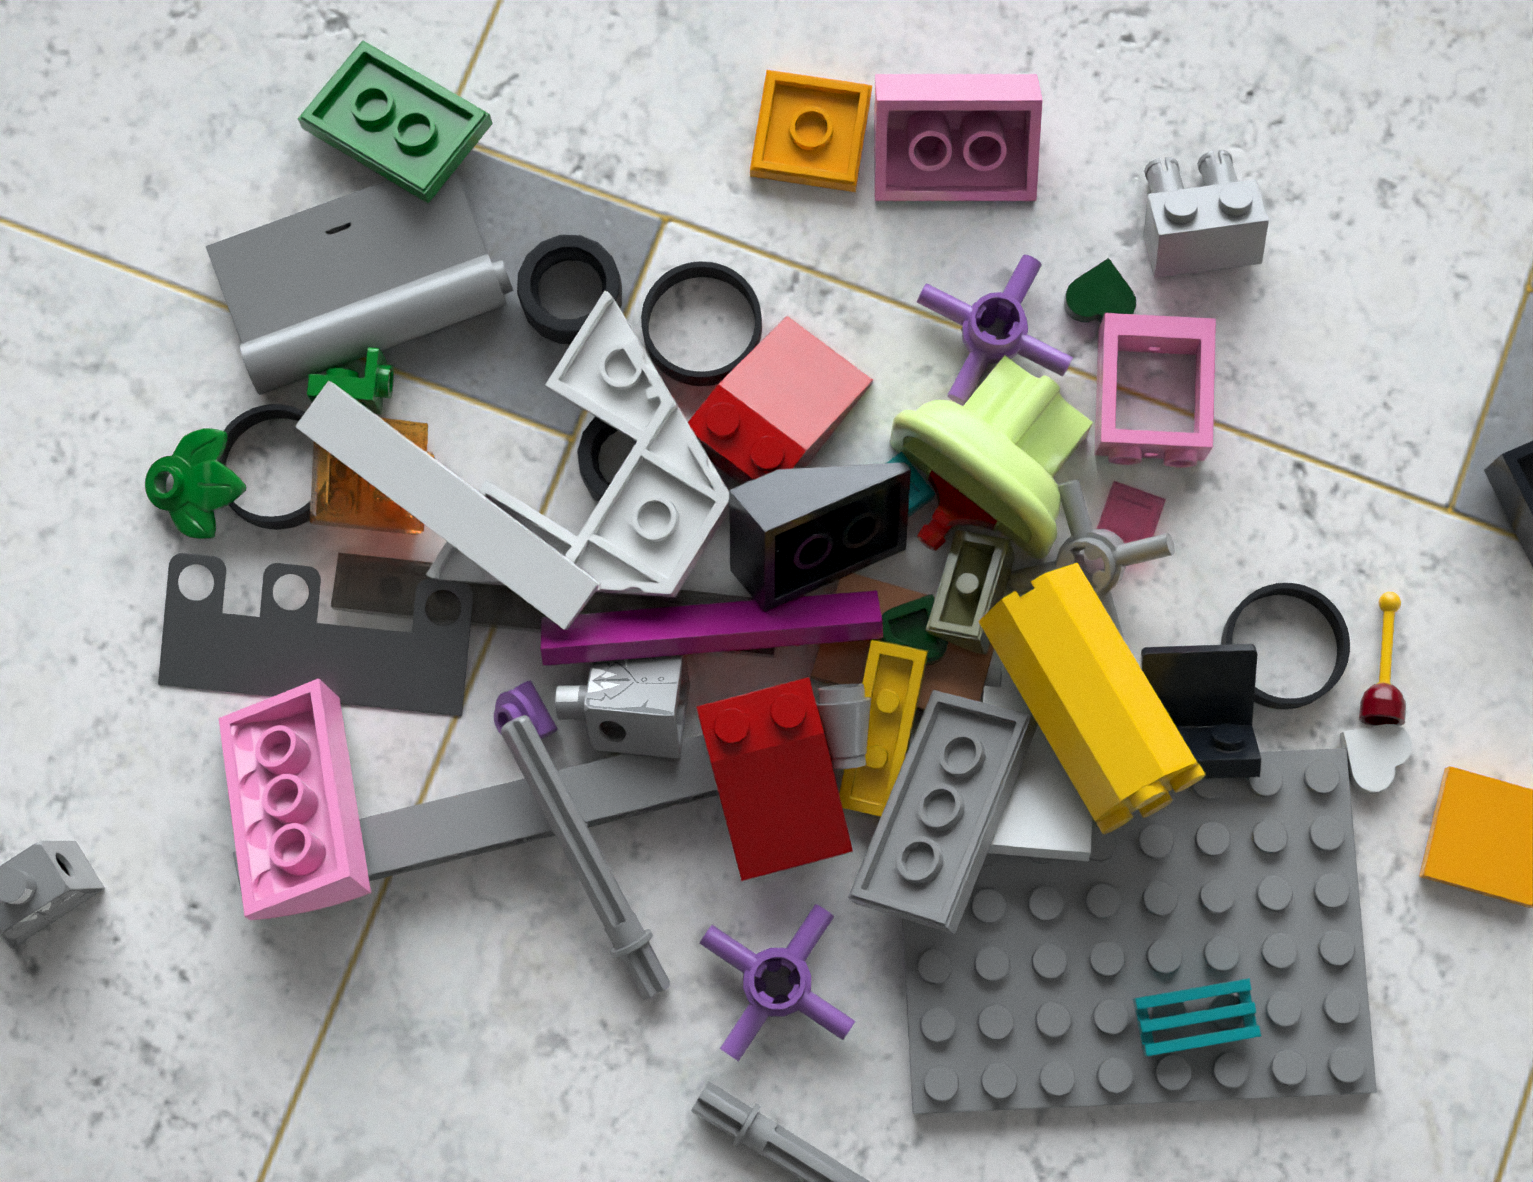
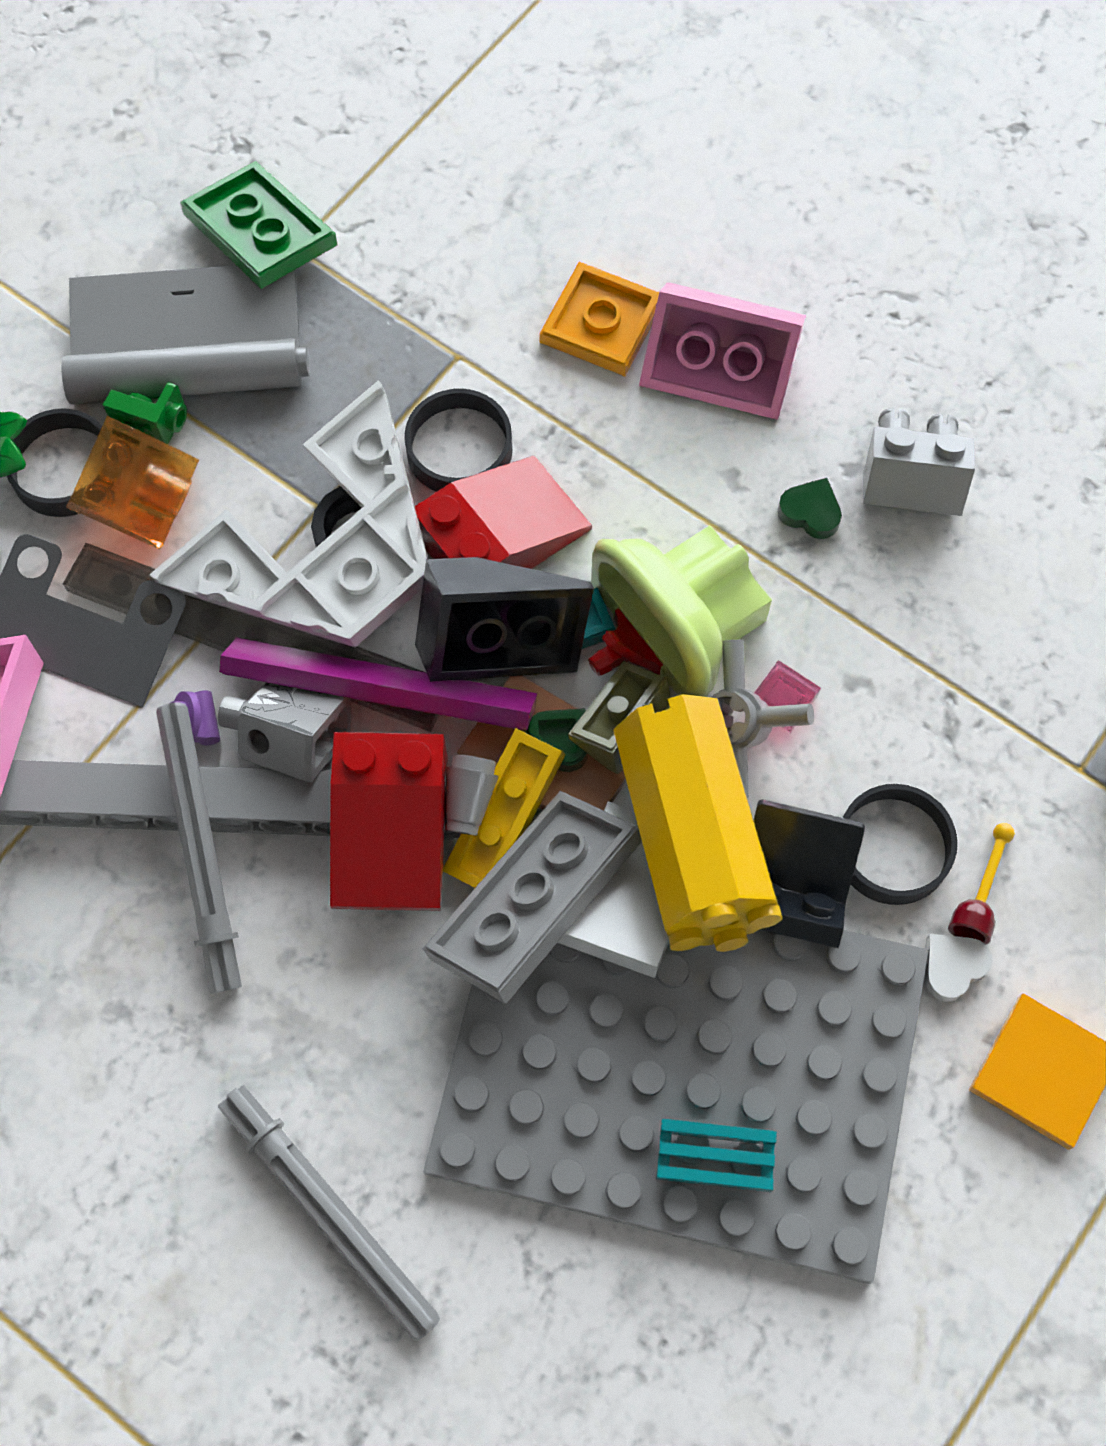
camera: 15 degrees right, 10 degrees down
(448, 505) = (185, 518): white tile -> none
(552, 252) = (347, 355): black tyre -> none
(771, 959) = (350, 1027): medium lavender bar -> none
(984, 347) = (698, 500): medium lavender bar -> none
(1155, 335) = (849, 549): bright pink window -> none

